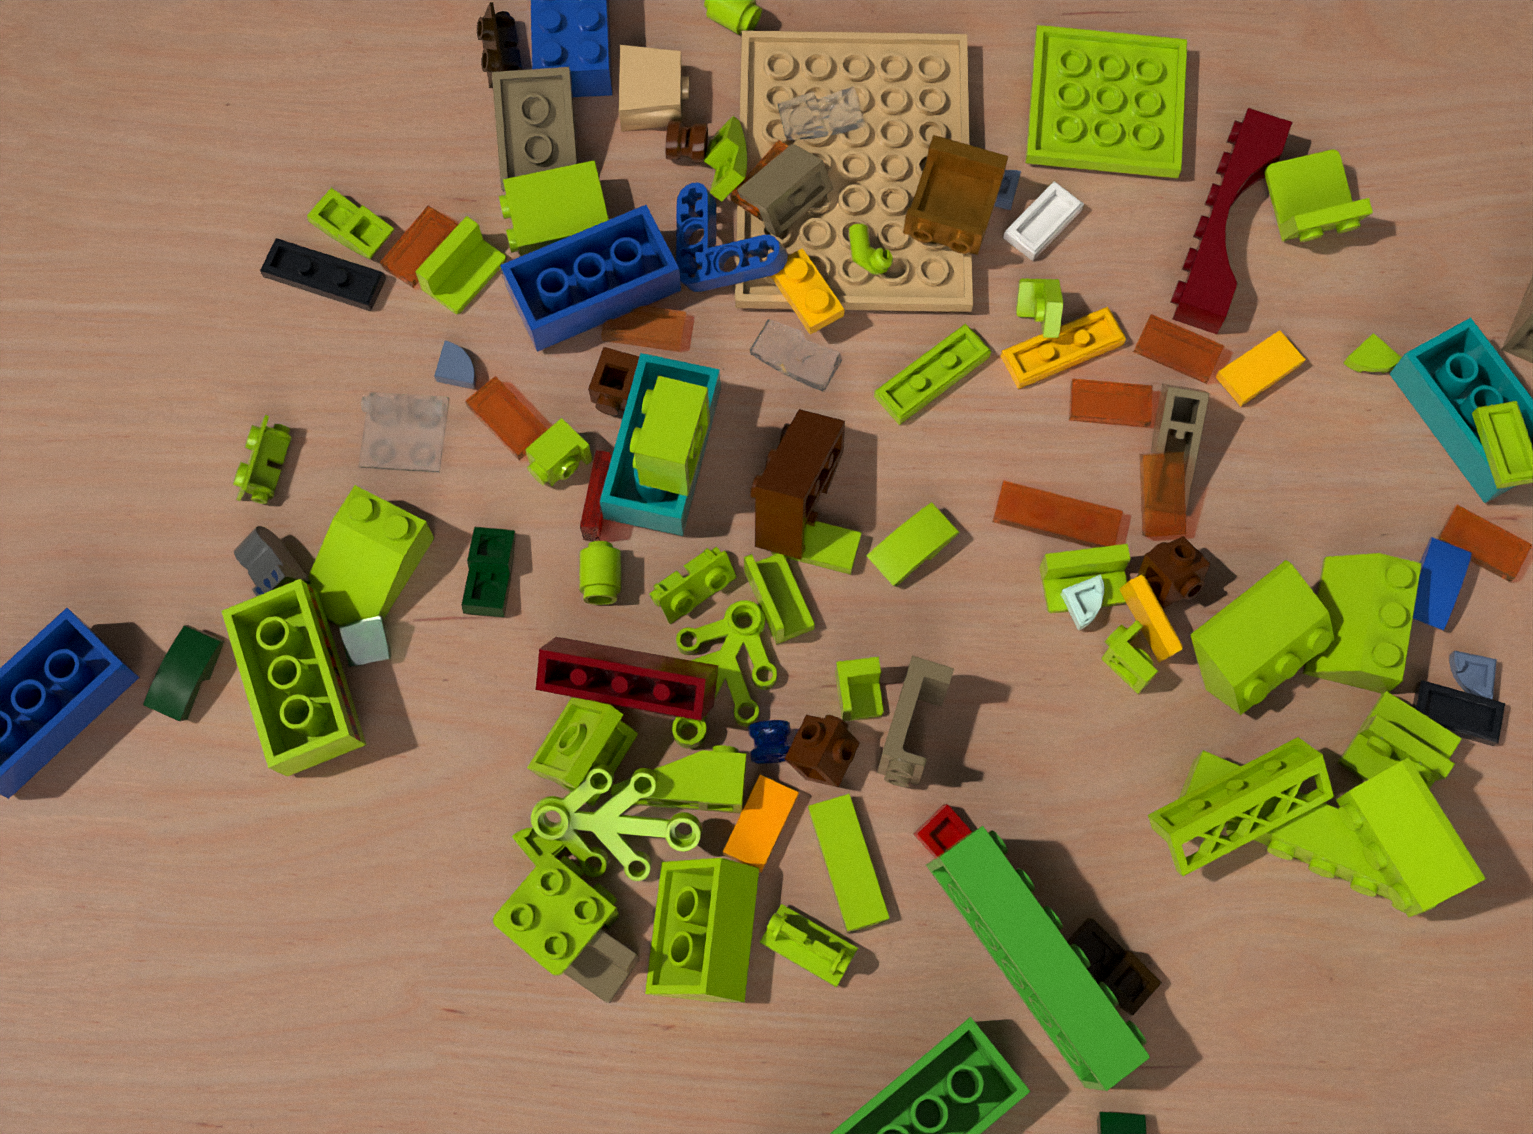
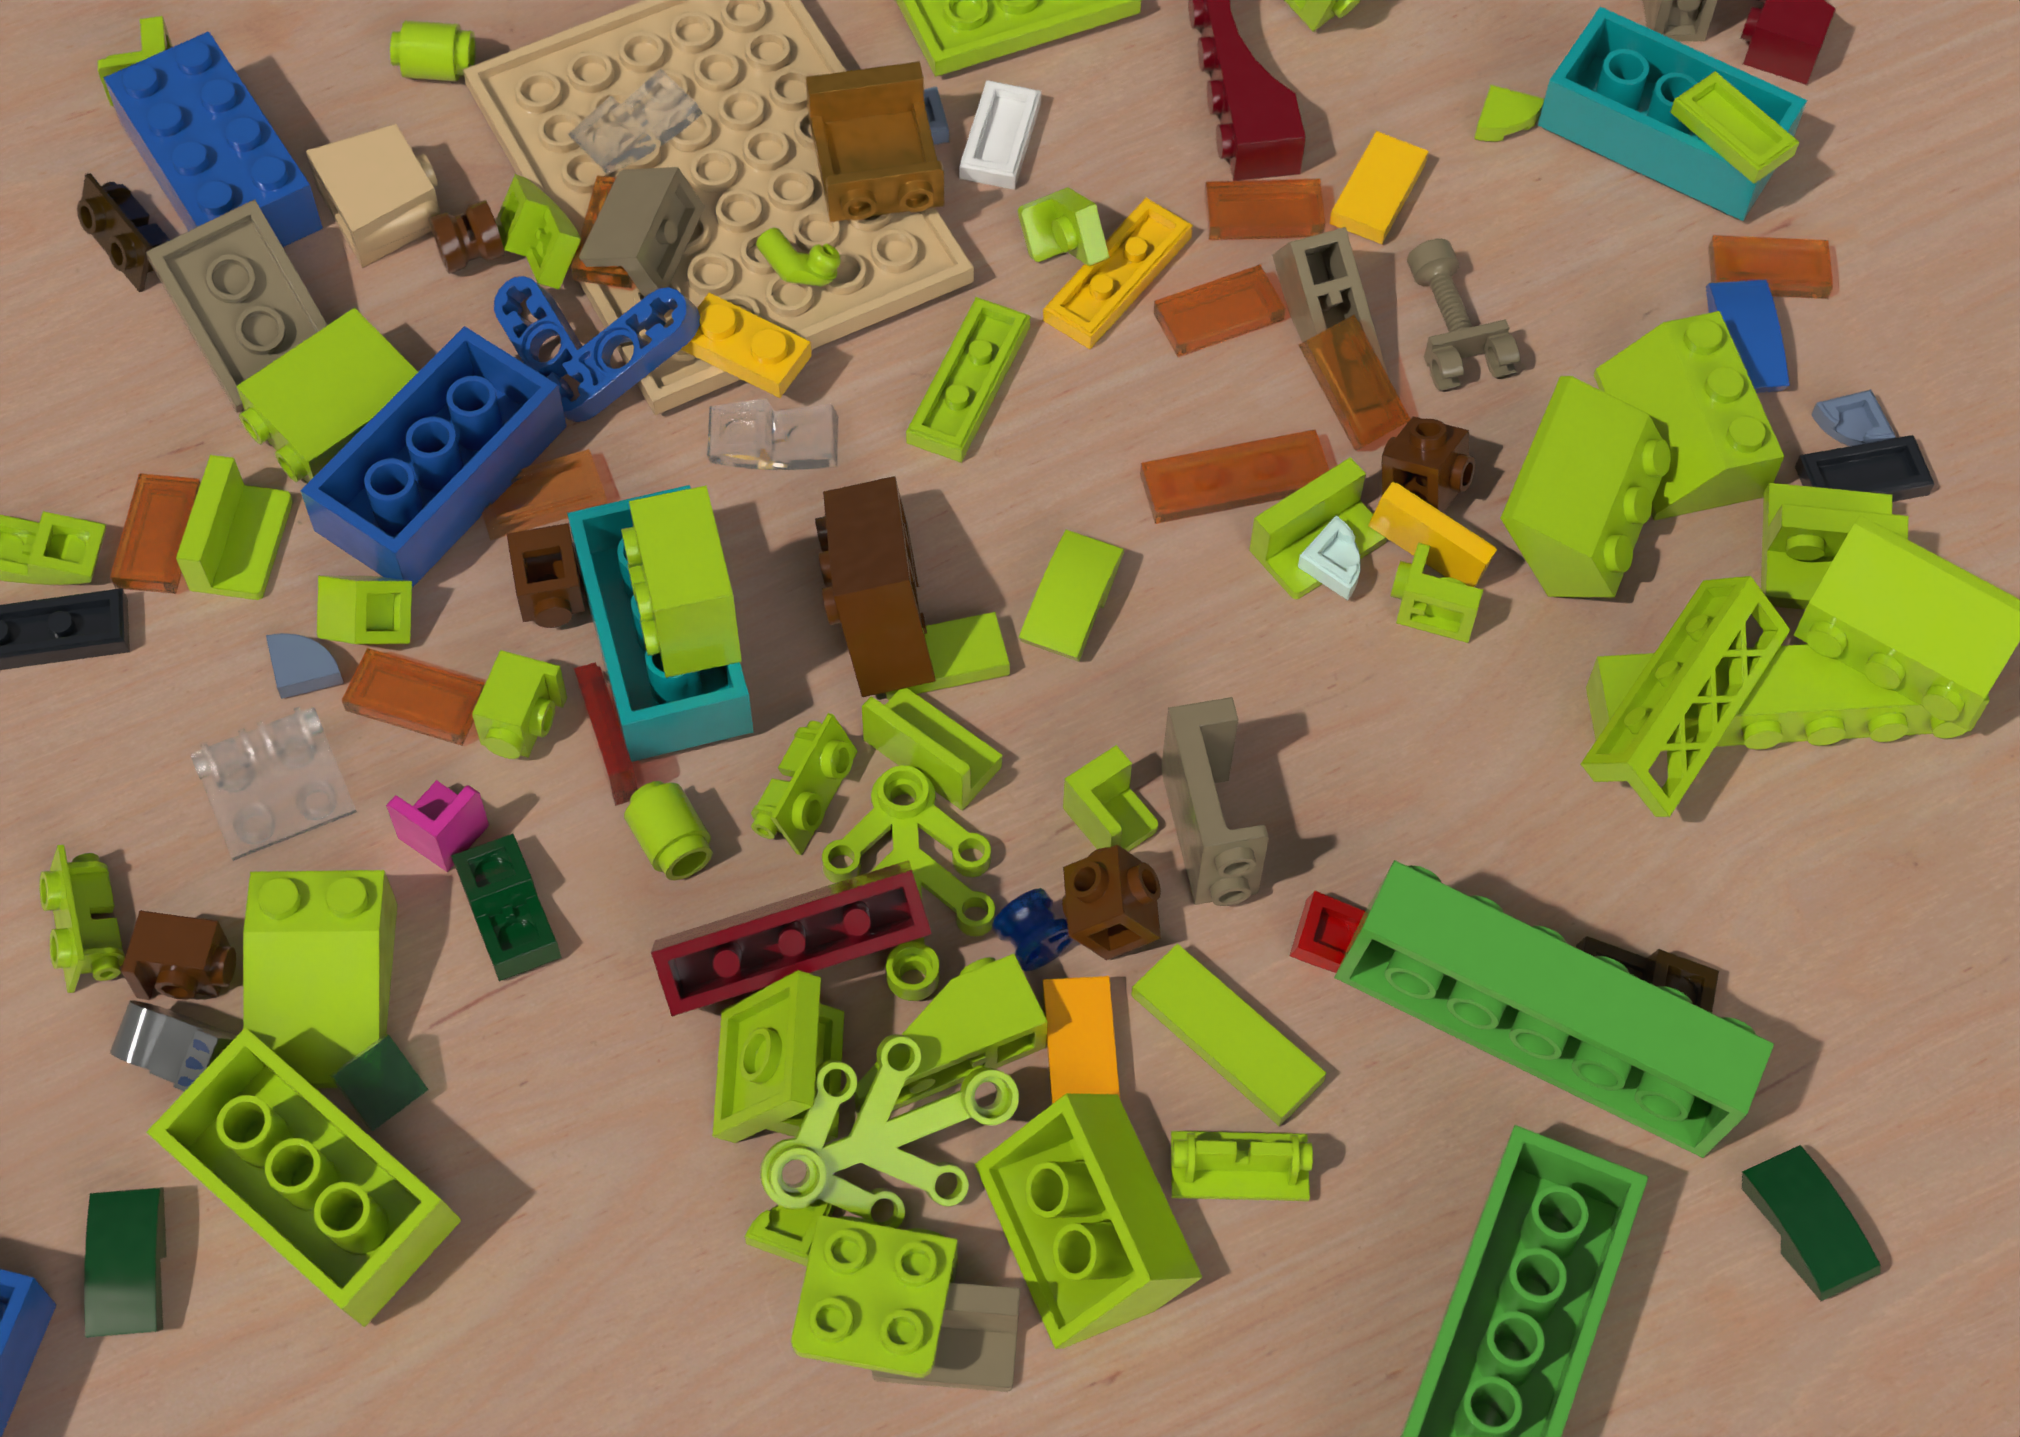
camera: 30 degrees left, 10 degrees down
(297, 511) = (178, 957): none -> reddish brown brick
(479, 503) = (440, 822): none -> dark pink panel
(505, 351) = (364, 609): none -> lime panel
(1261, 439) = (1433, 266): none -> dark tan bar

